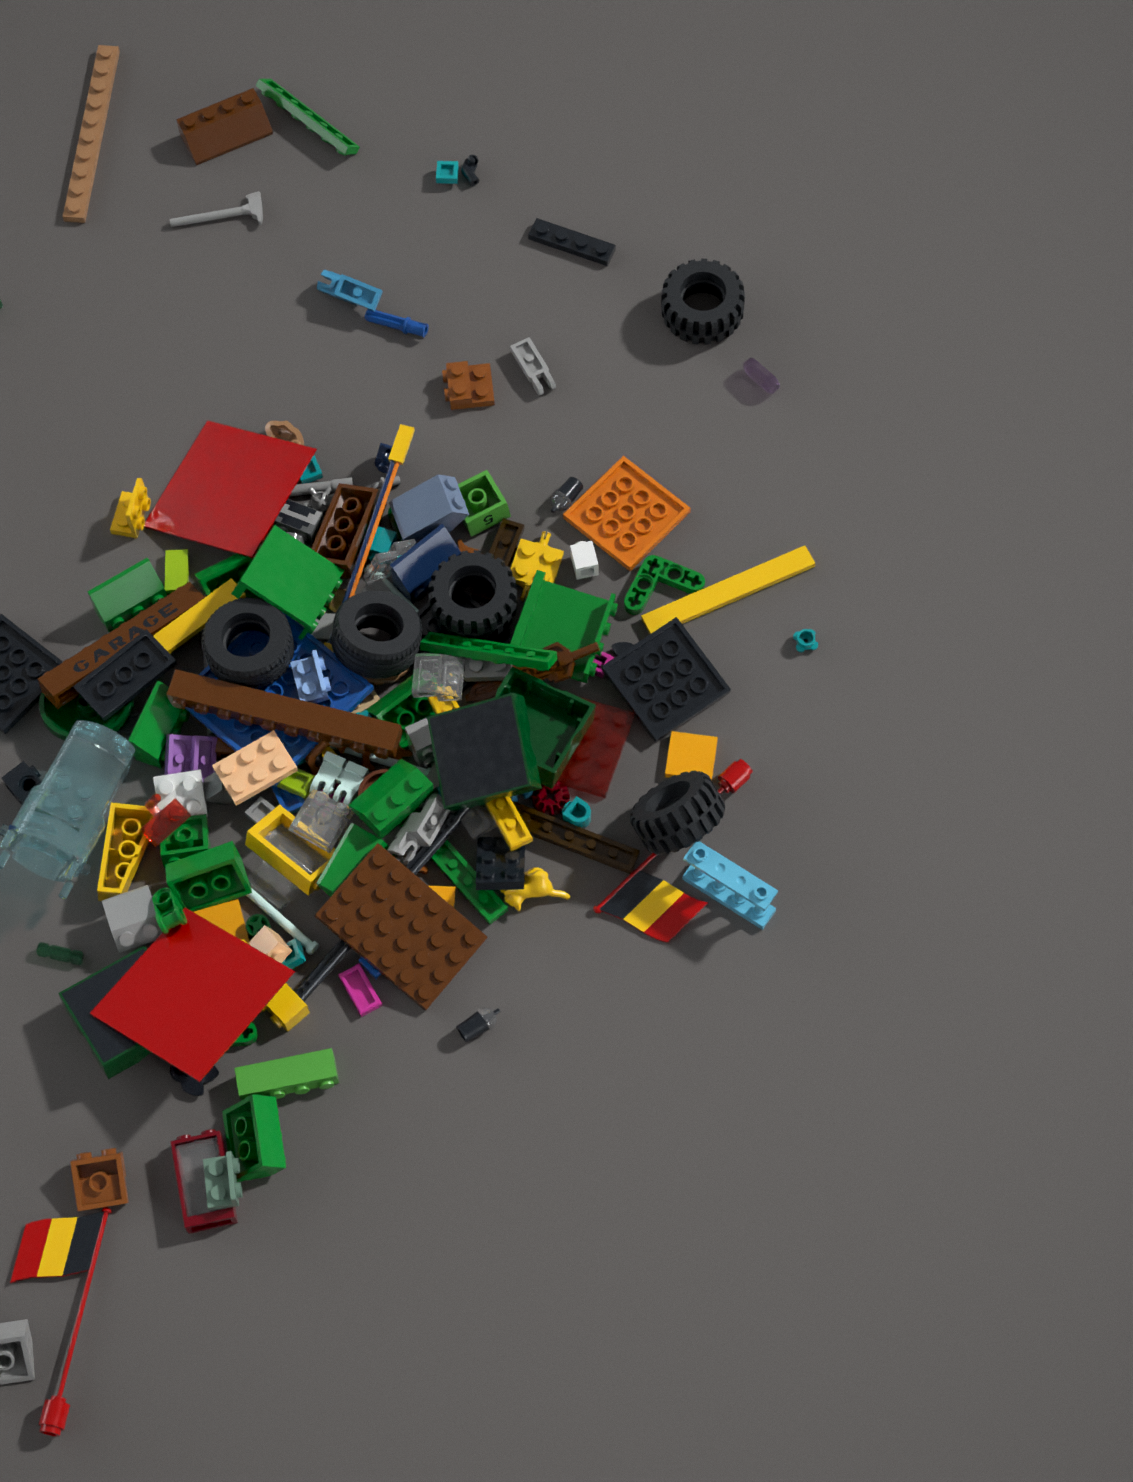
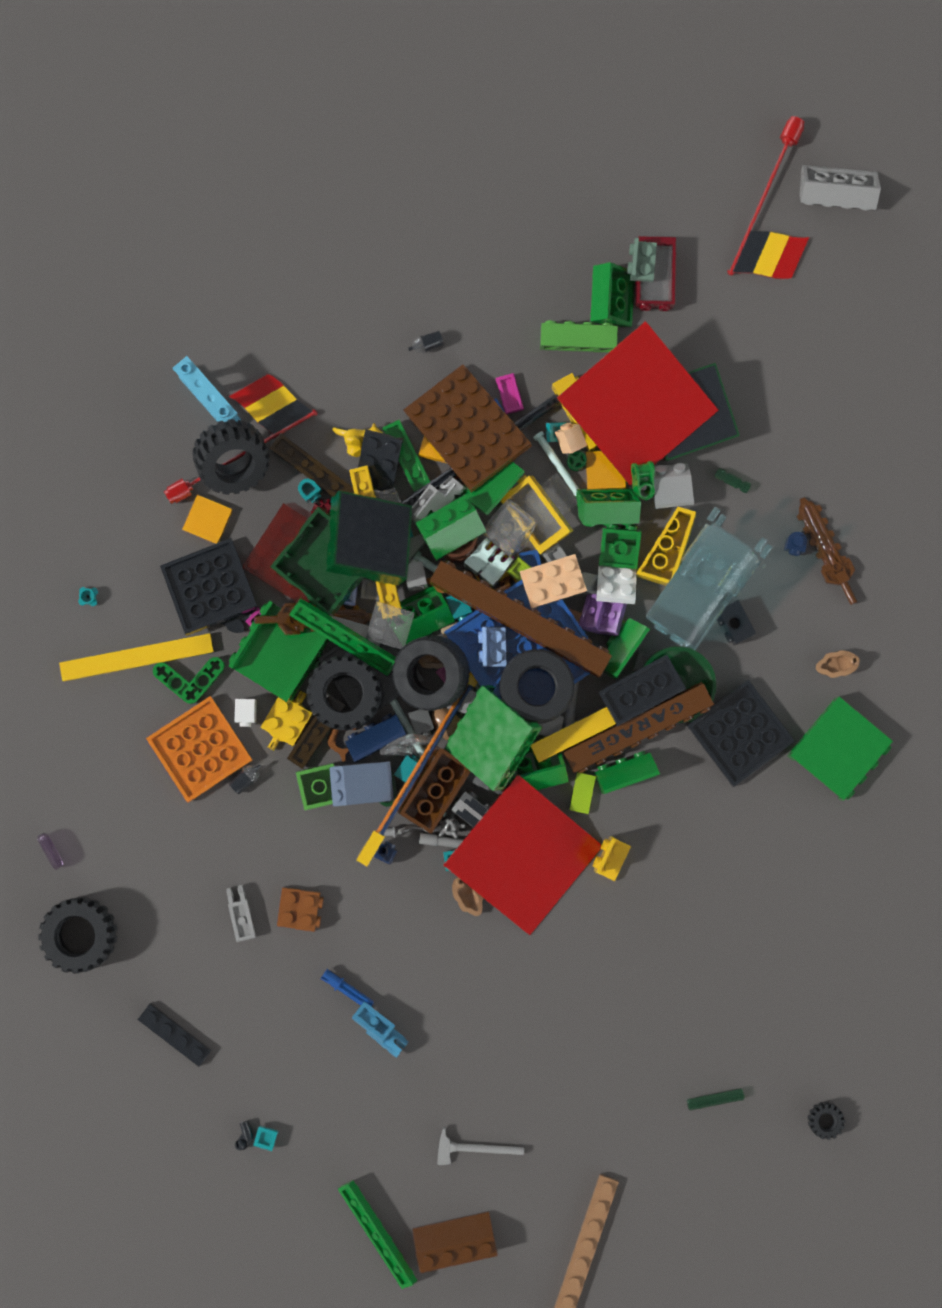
camera: 170 degrees left, 20 degrees up
(99, 1179) = (732, 293): dark orange plate -> none
(164, 820) = (633, 560): clear red plate -> none

